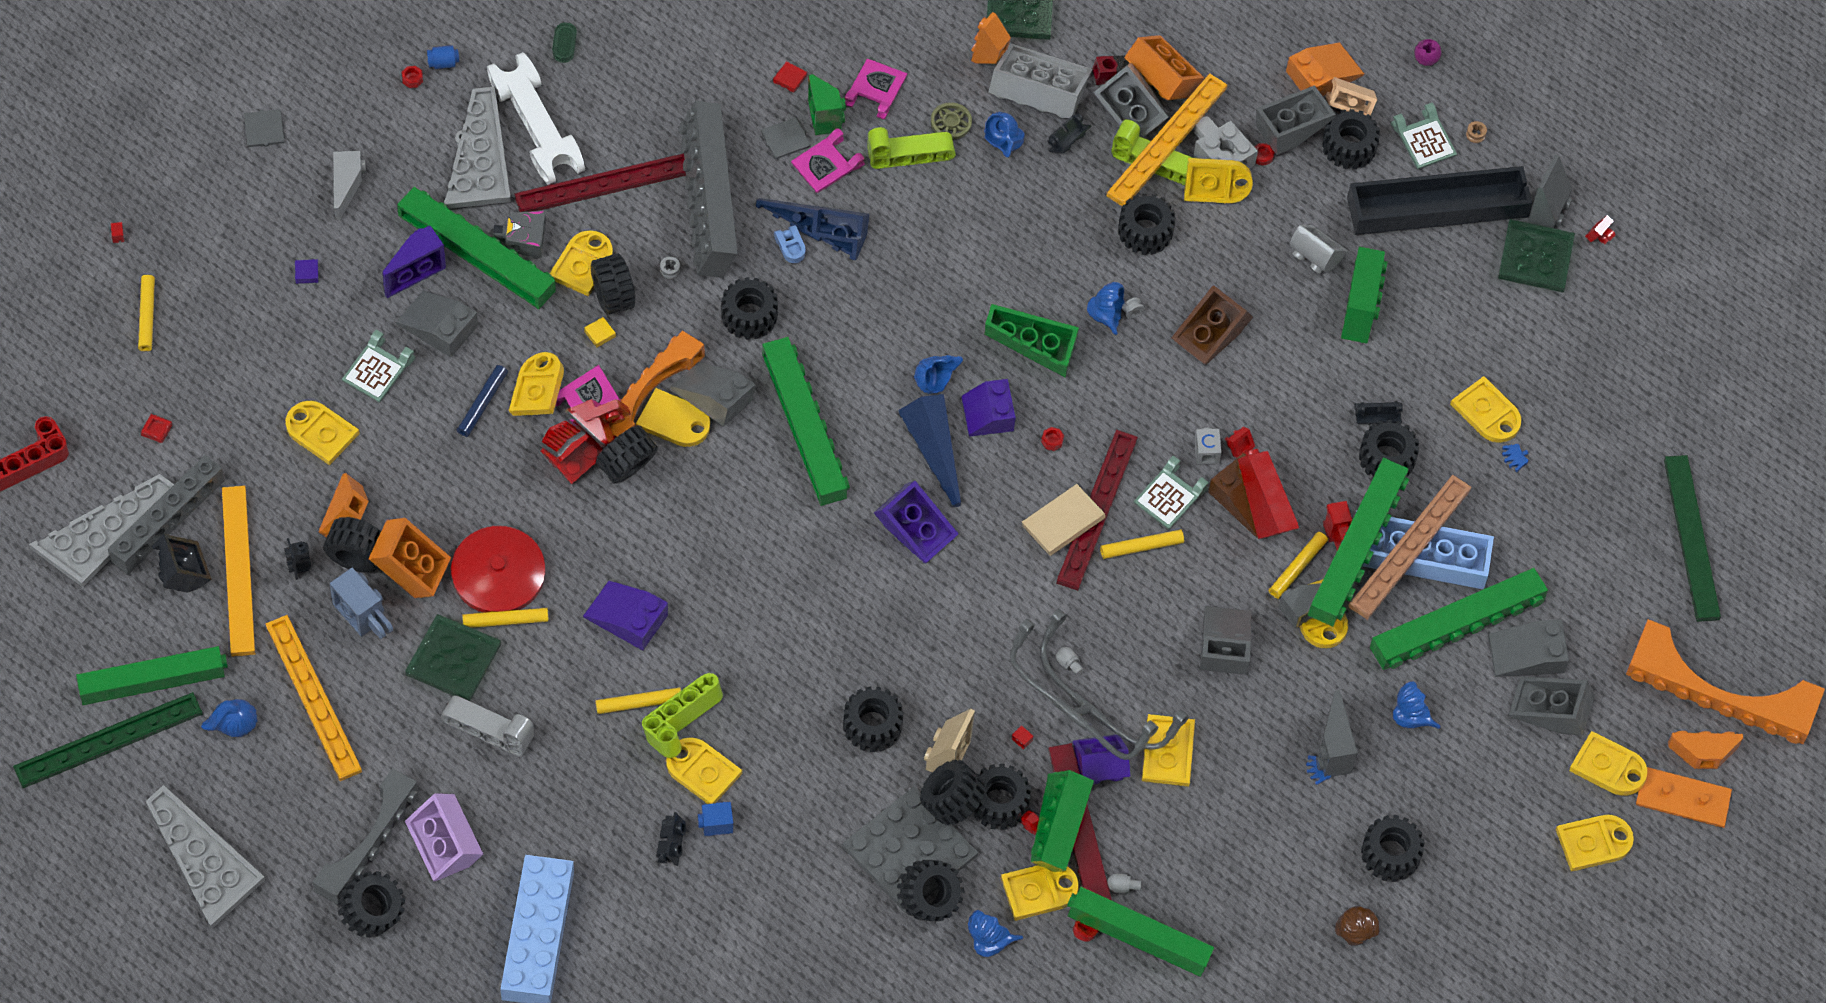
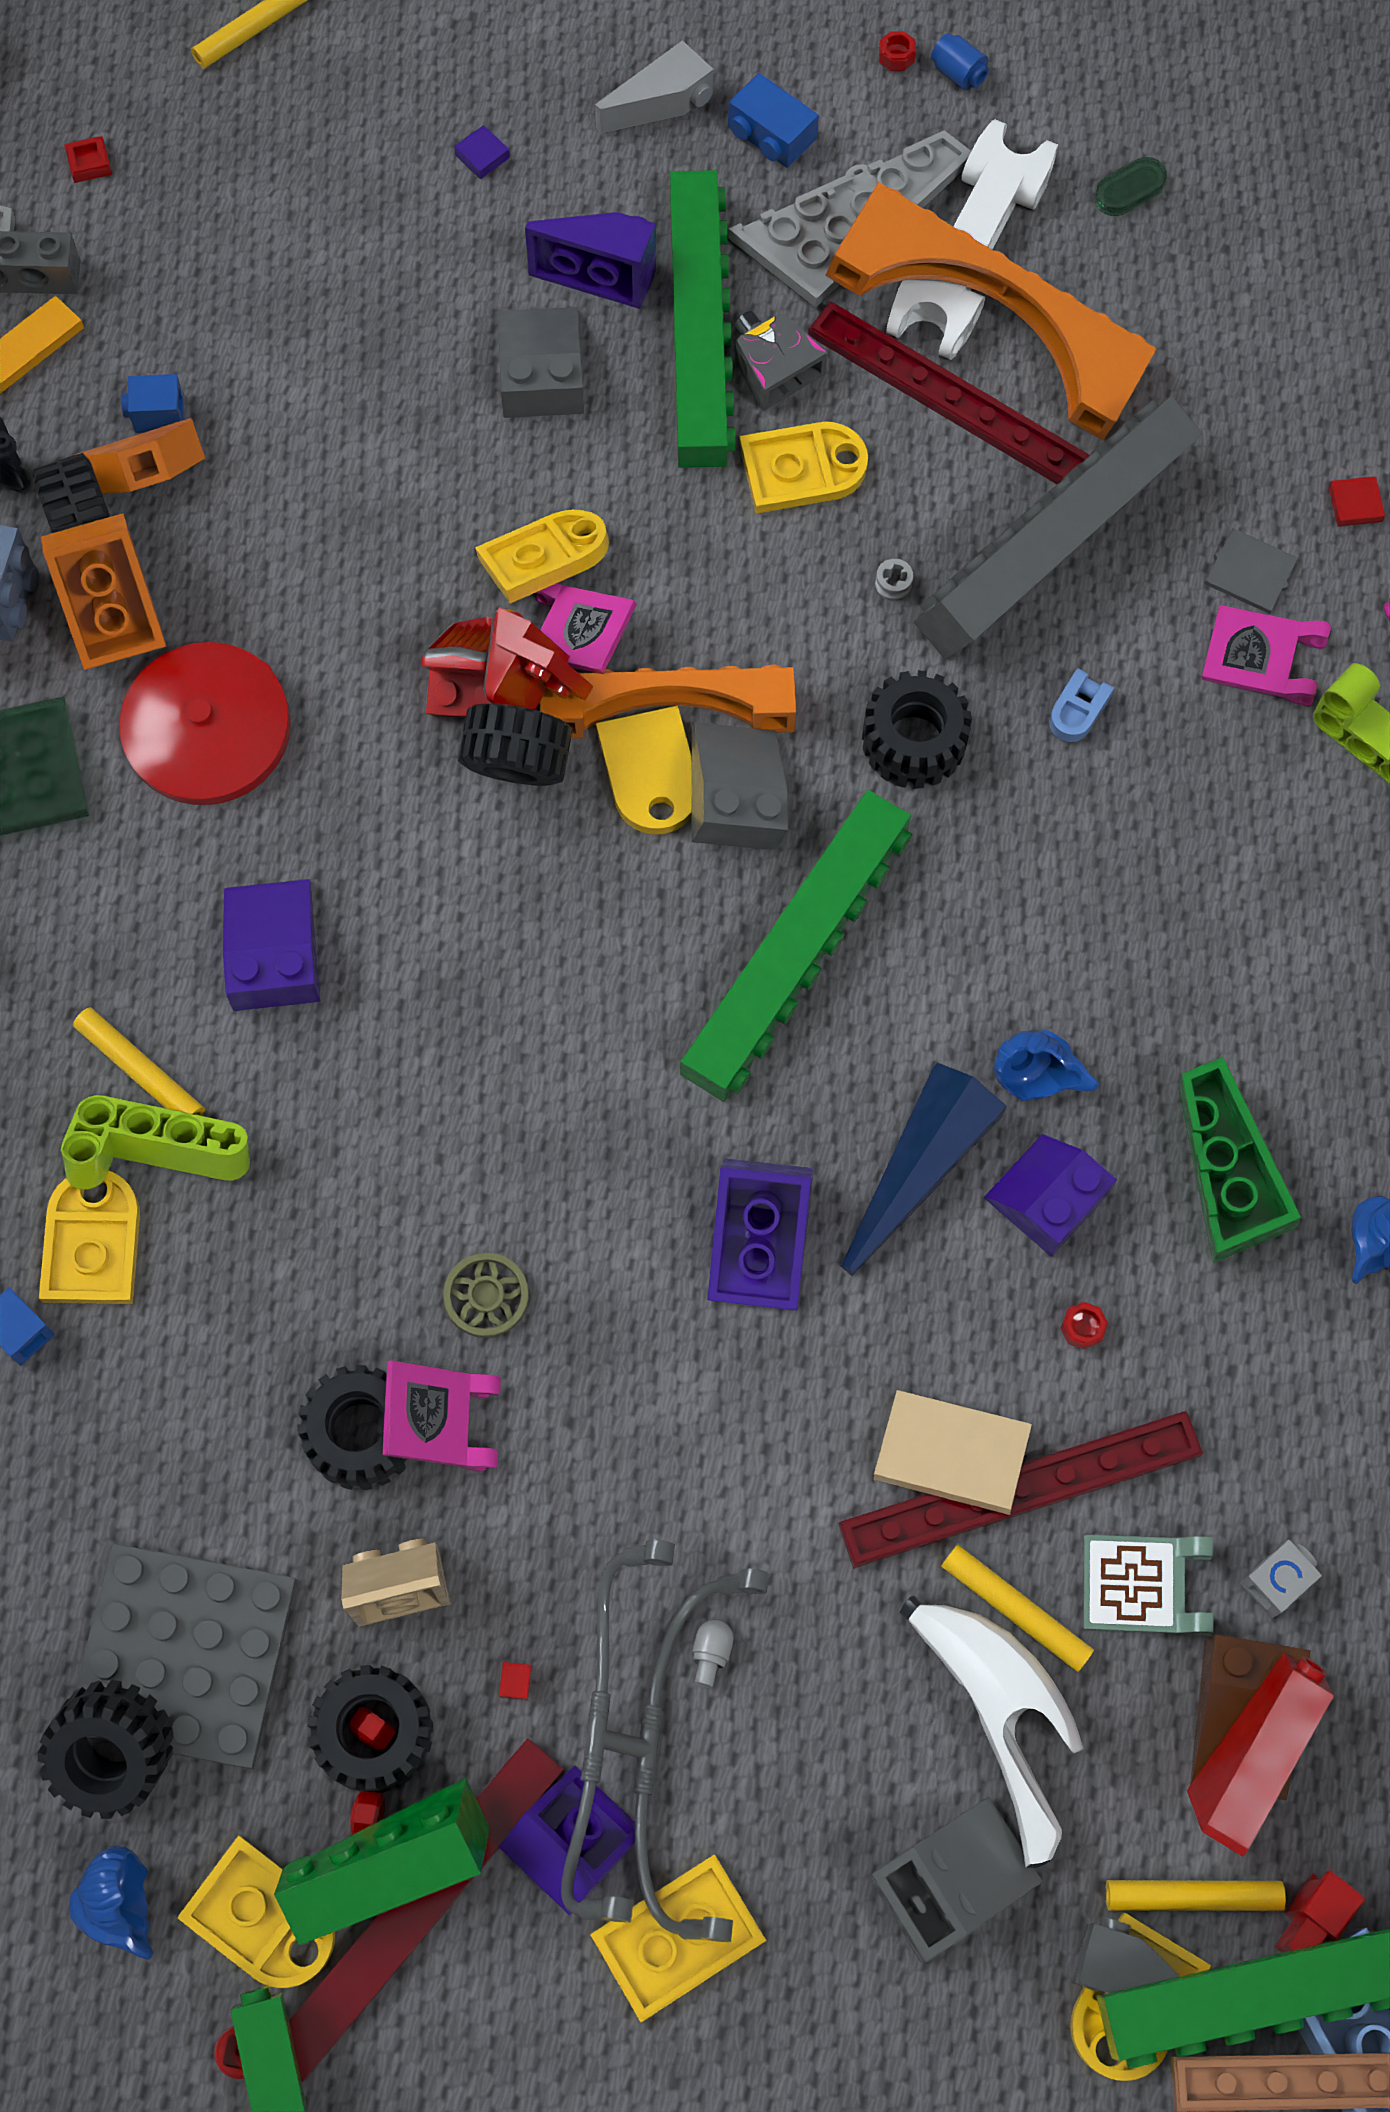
camera: 55 degrees right, 10 degrees up
(319, 484) = (153, 401): none -> blue brick
(321, 431) = (246, 350): yellow tile -> none
(376, 369) = (404, 341): flag -> none
(403, 149) = (772, 120): none -> blue brick
(482, 400) = (464, 504): dark blue piece -> none
(505, 617) = (135, 789): yellow piece -> none
(599, 332) = (707, 568): yellow tile -> none
(613, 284) = (783, 520): black tyre -> none
(636, 116) = (905, 242): none -> orange arch
(825, 106) = (1342, 577): green slope -> none
(837, 227) = (1166, 745): dark blue wedge -> none
(854, 640) = (486, 1295): none -> olive wheel
(894, 686) = (430, 1415): none -> dark pink flag
(952, 792) = (294, 1654): black tyre -> none
(1000, 796) = (372, 1730): none -> red tile
(1122, 883) = (370, 2050): light grey cylinder -> none
(1167, 566) = (1003, 1684): none -> white piece
(1240, 442) = (1334, 1626): red tile -> none

